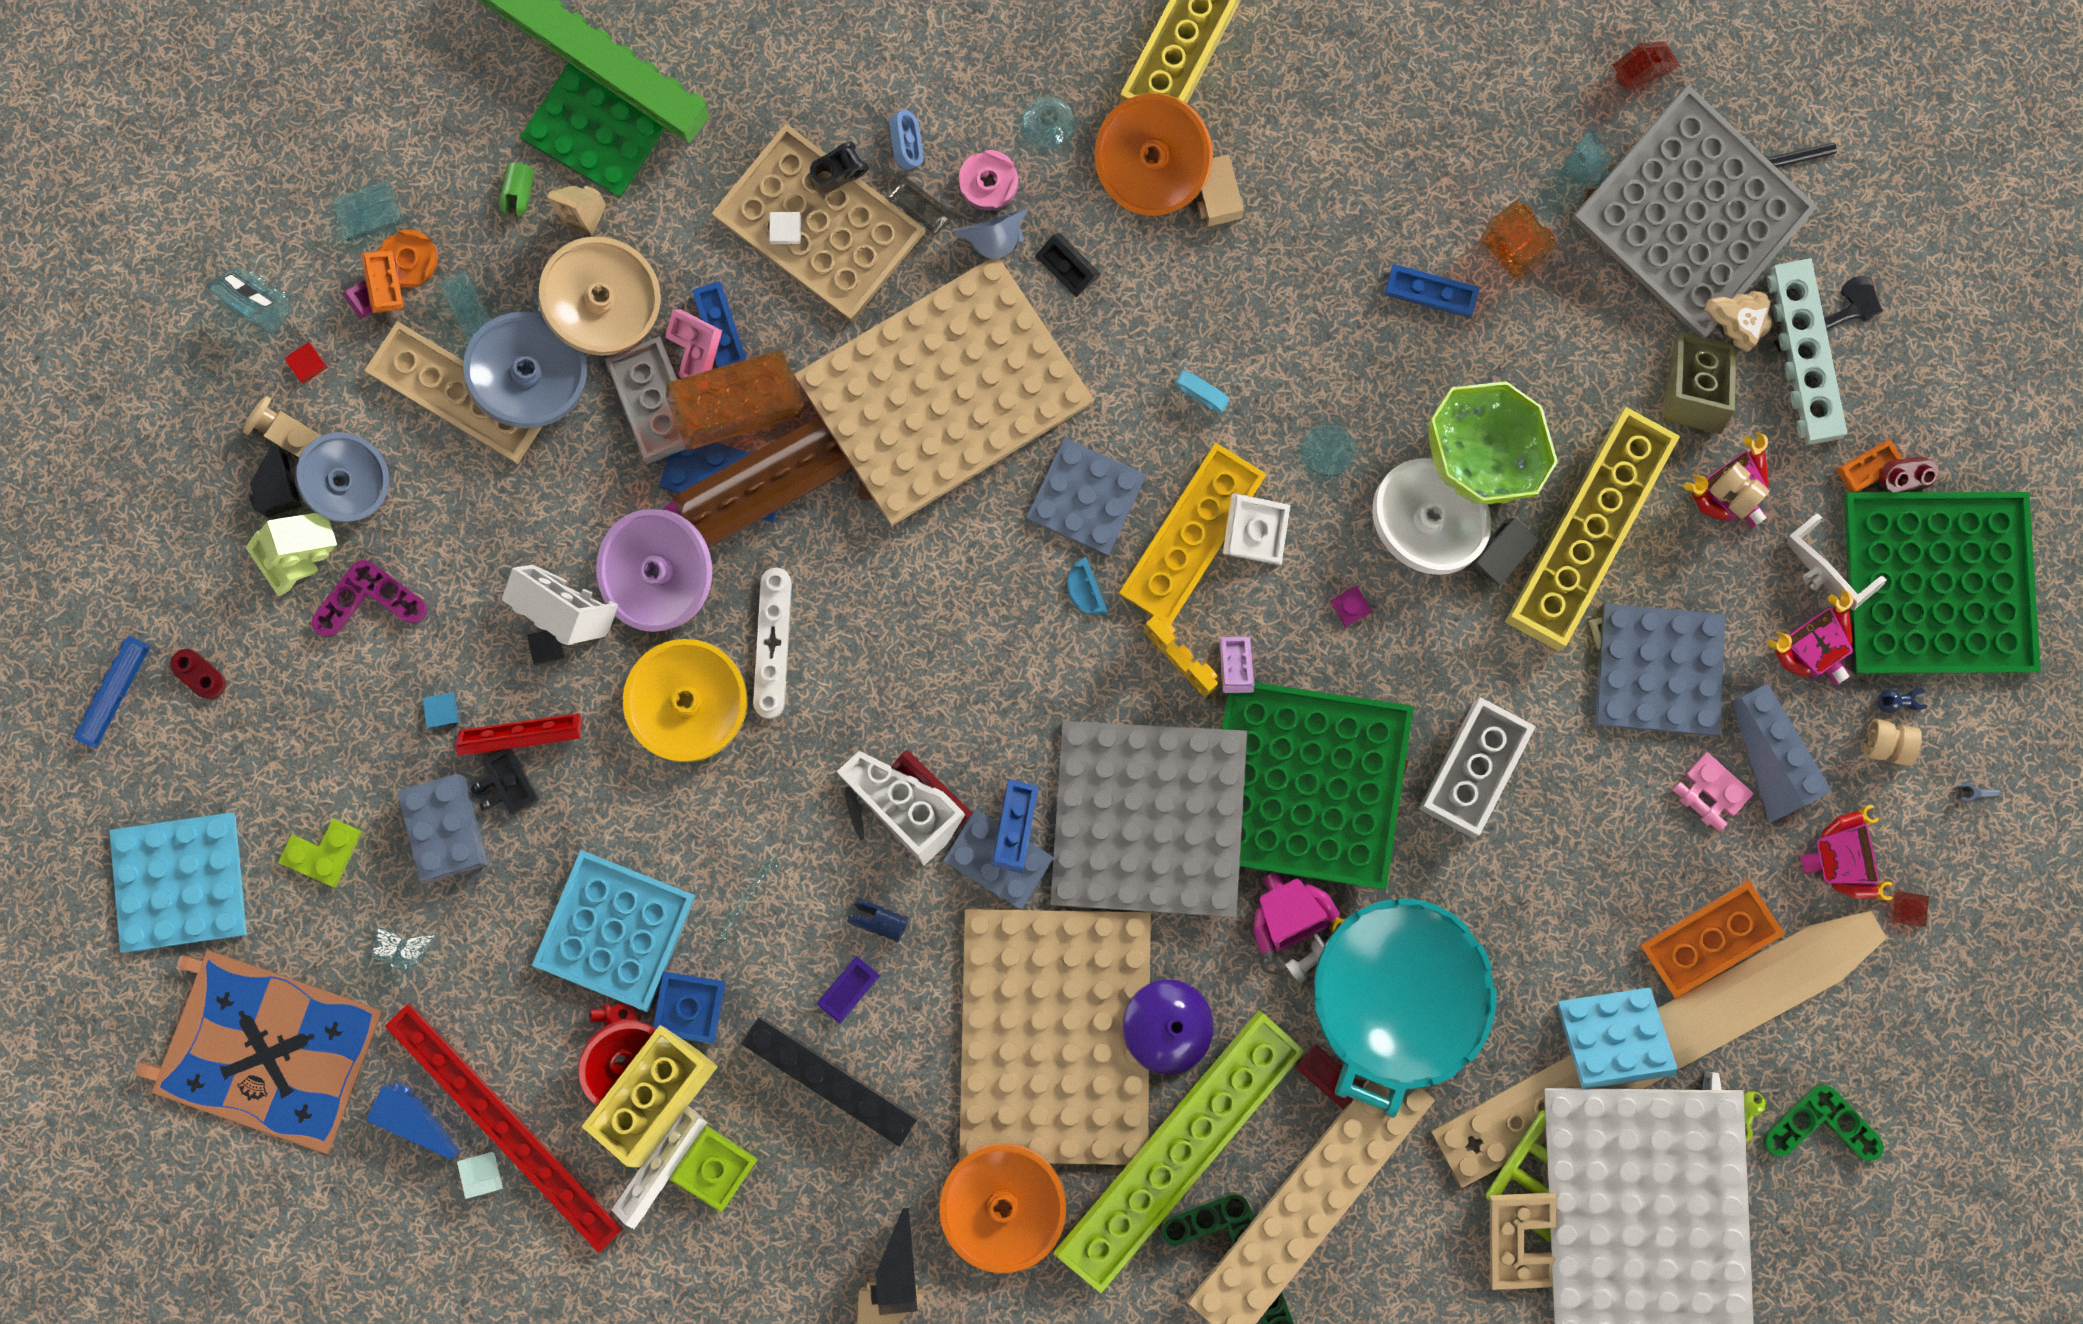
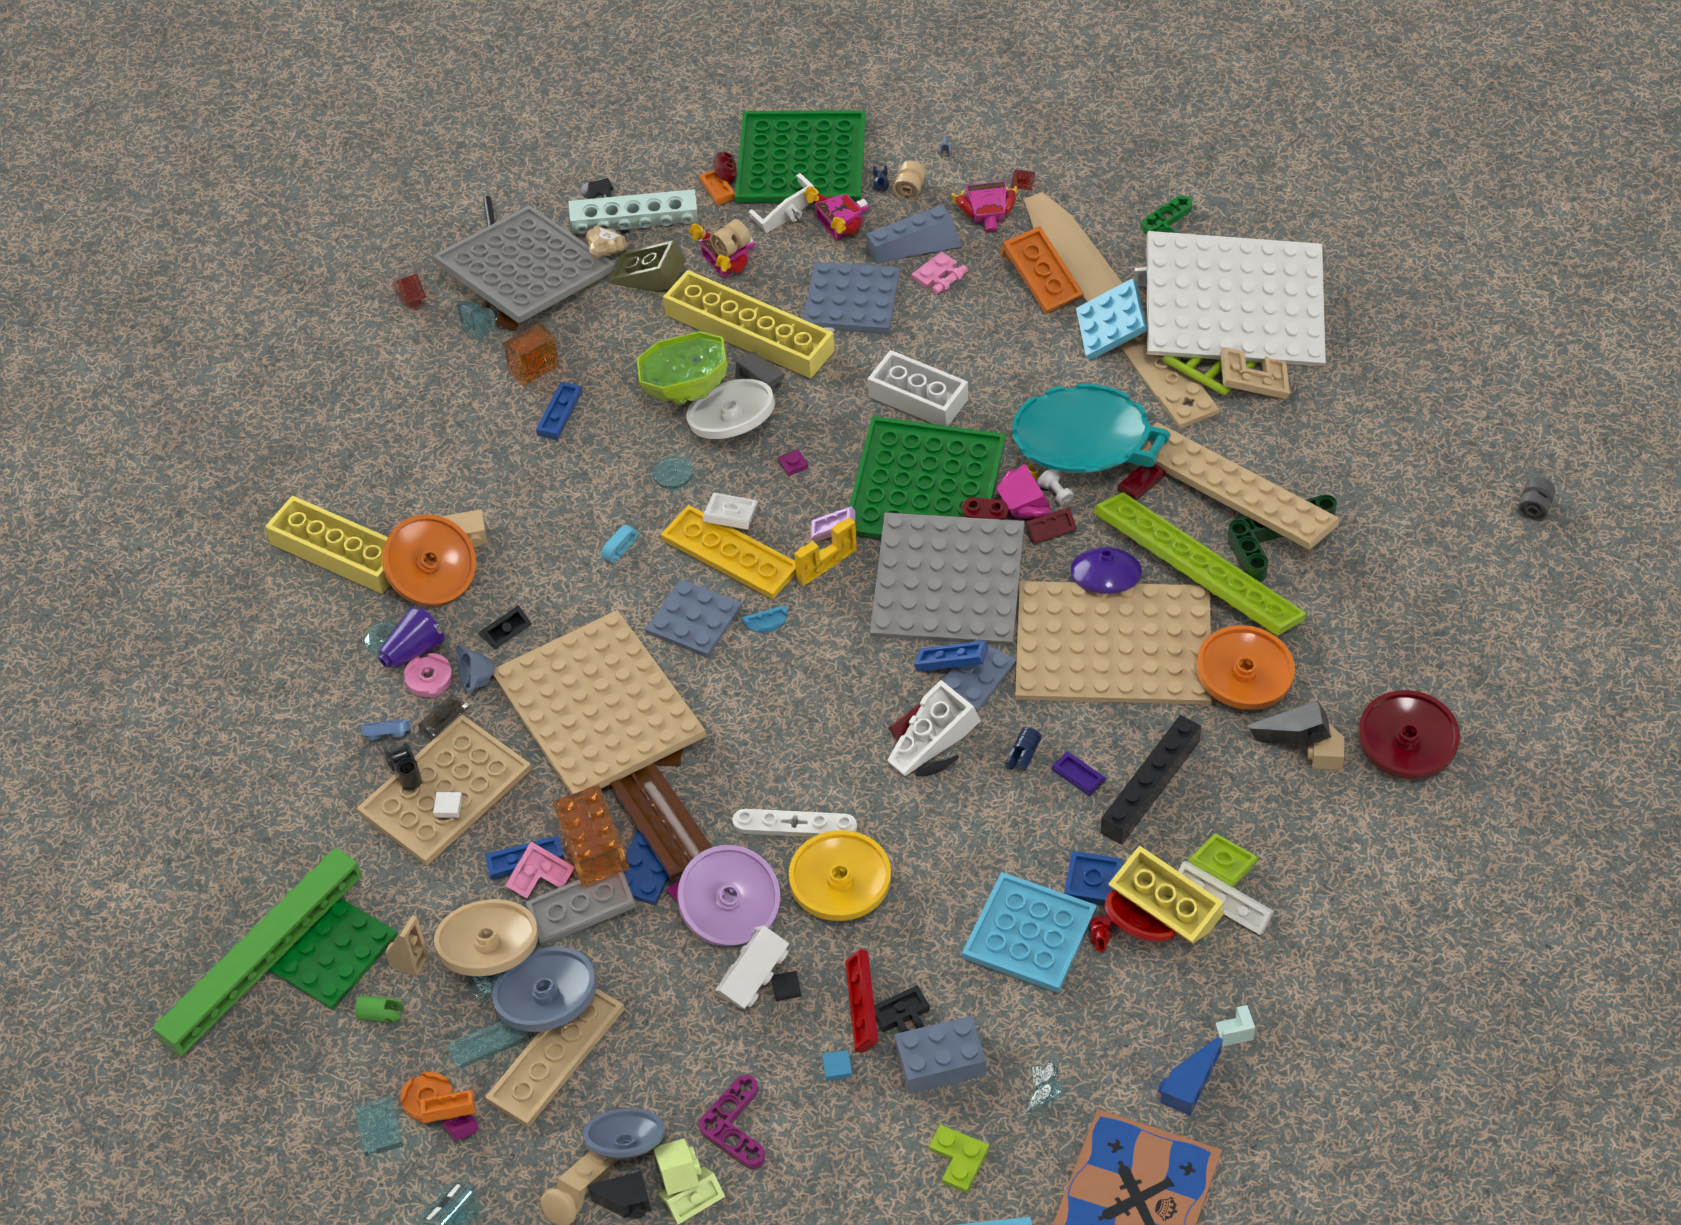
camera: 85 degrees left, 30 degrees down
(305, 362) = (511, 1178): red tile -> none
(504, 1127) = (1192, 1013): red plate -> none
(1030, 149) = (410, 638): none -> dark purple cone
(1244, 953) = (1051, 525): none -> dark red plate
(1255, 864) = (984, 508): none -> dark red plate

